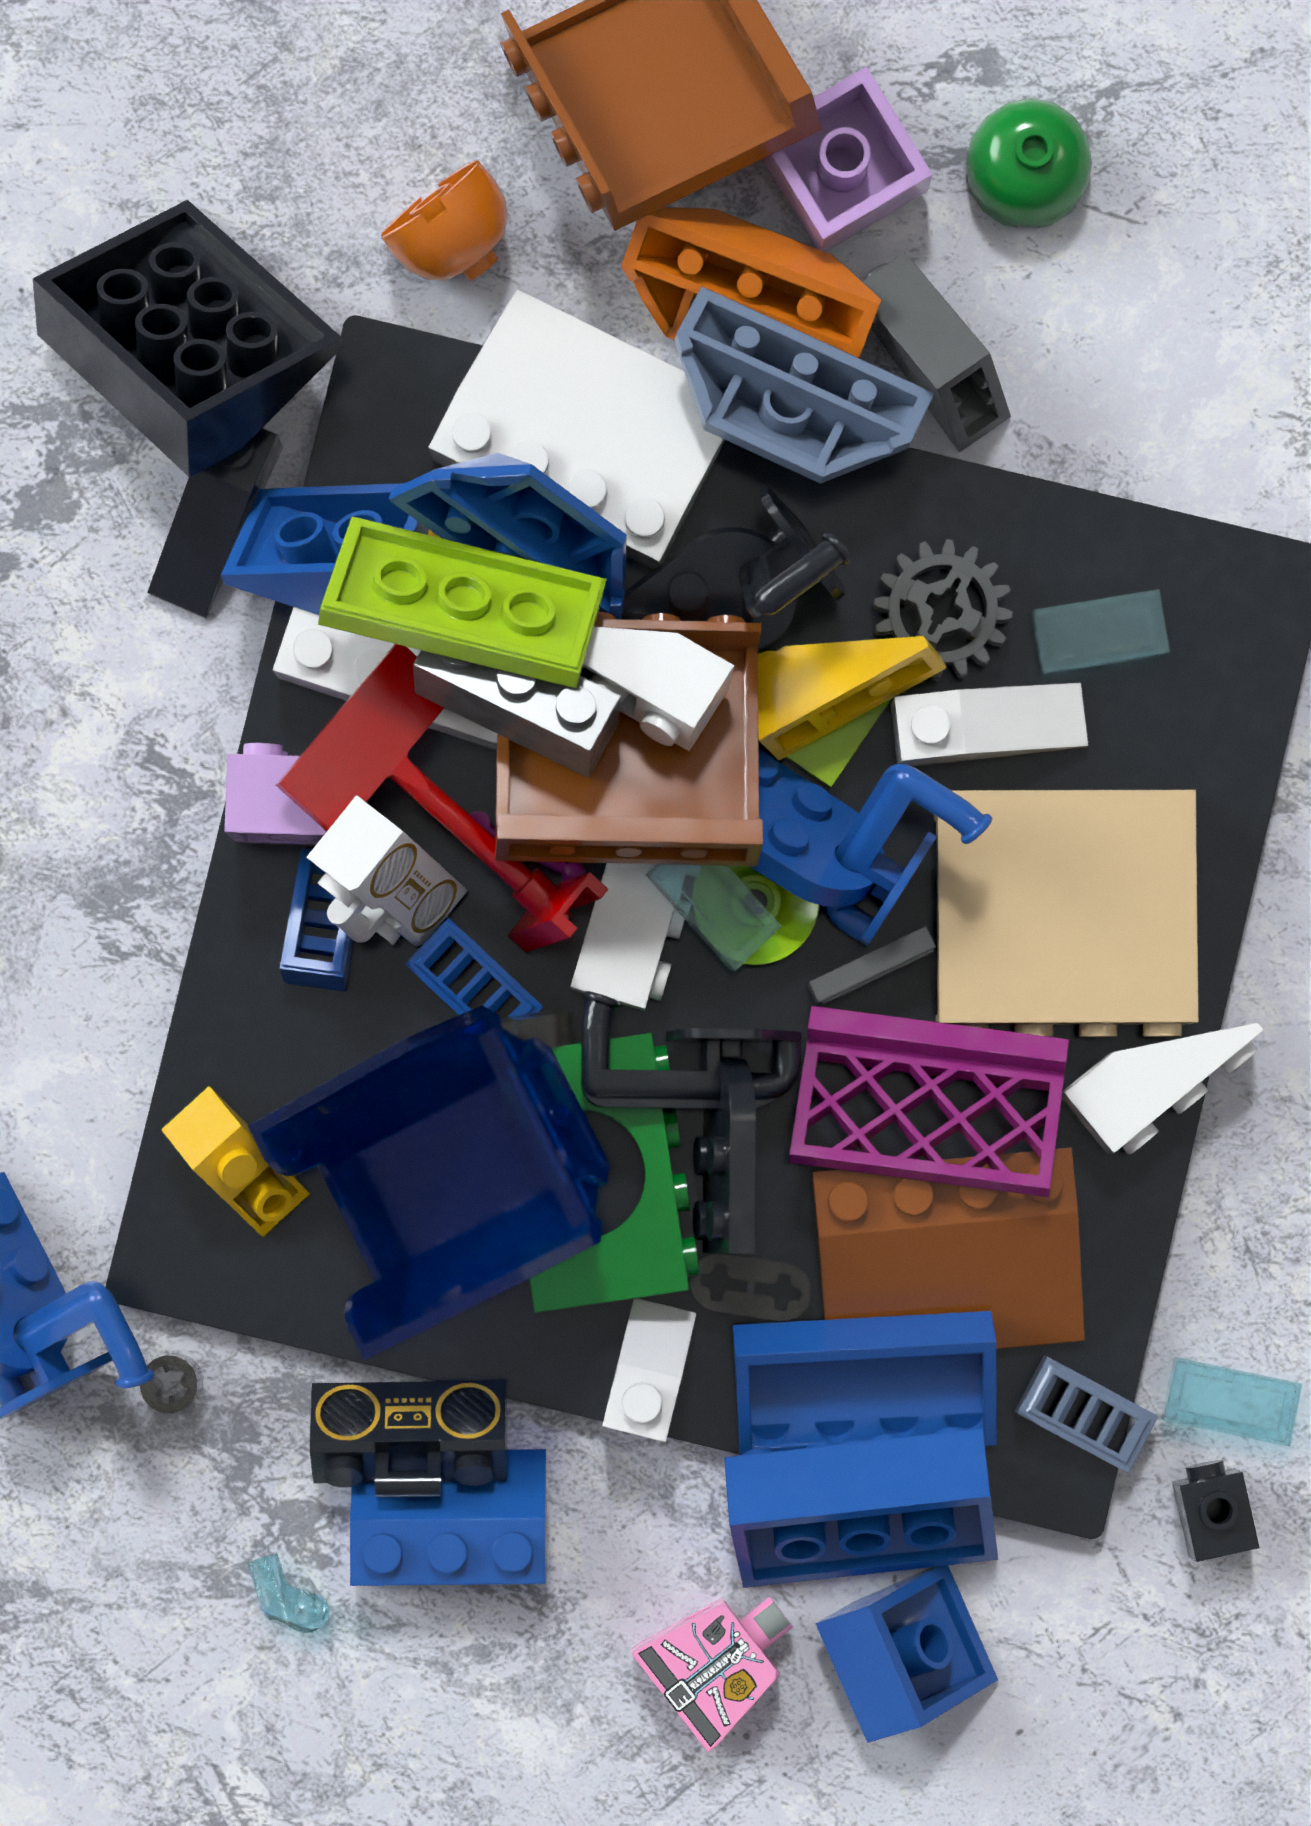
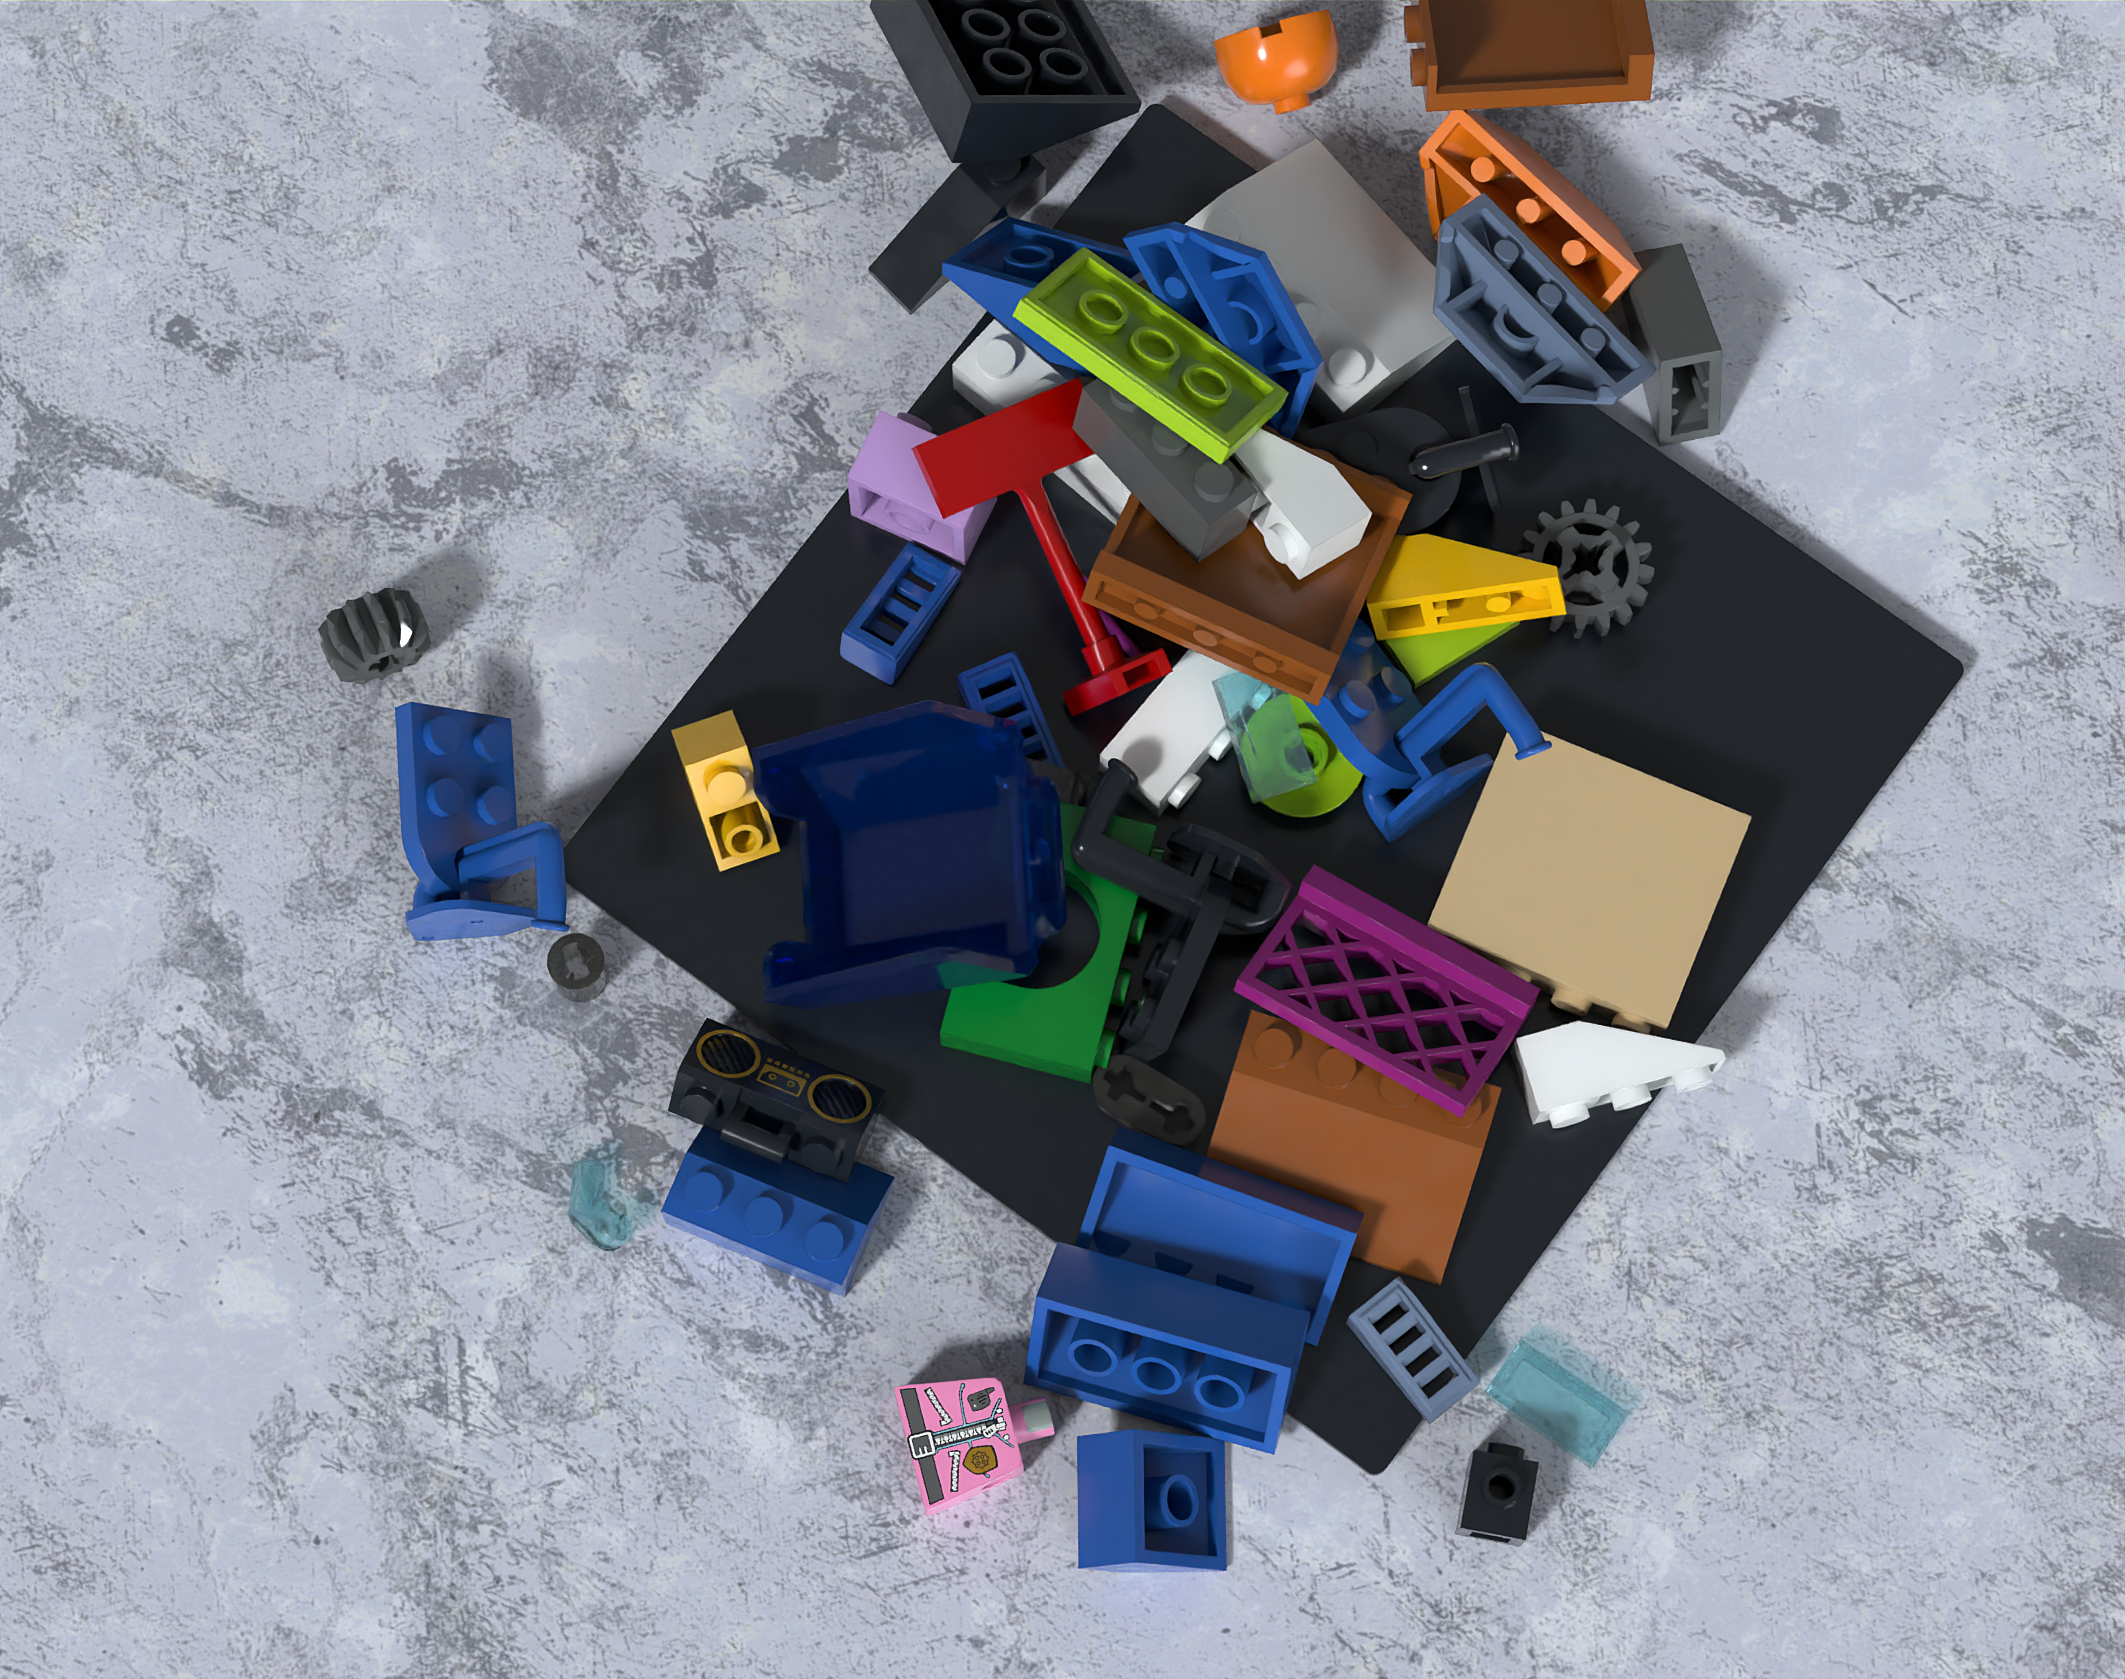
camera: 25 degrees right, 10 degrees down
(382, 879) = (976, 576): white piece -> none
(649, 1369) = (1020, 1138): white slope -> none
(851, 168) = (1662, 151): lavender brick -> none
(871, 967) = (1386, 857): dark grey tile -> none
(987, 723) = (1586, 685): white slope -> none
(1028, 163) = (1827, 219): green cylinder -> none
(1100, 632) = (1722, 650): clear light blue tile -> none

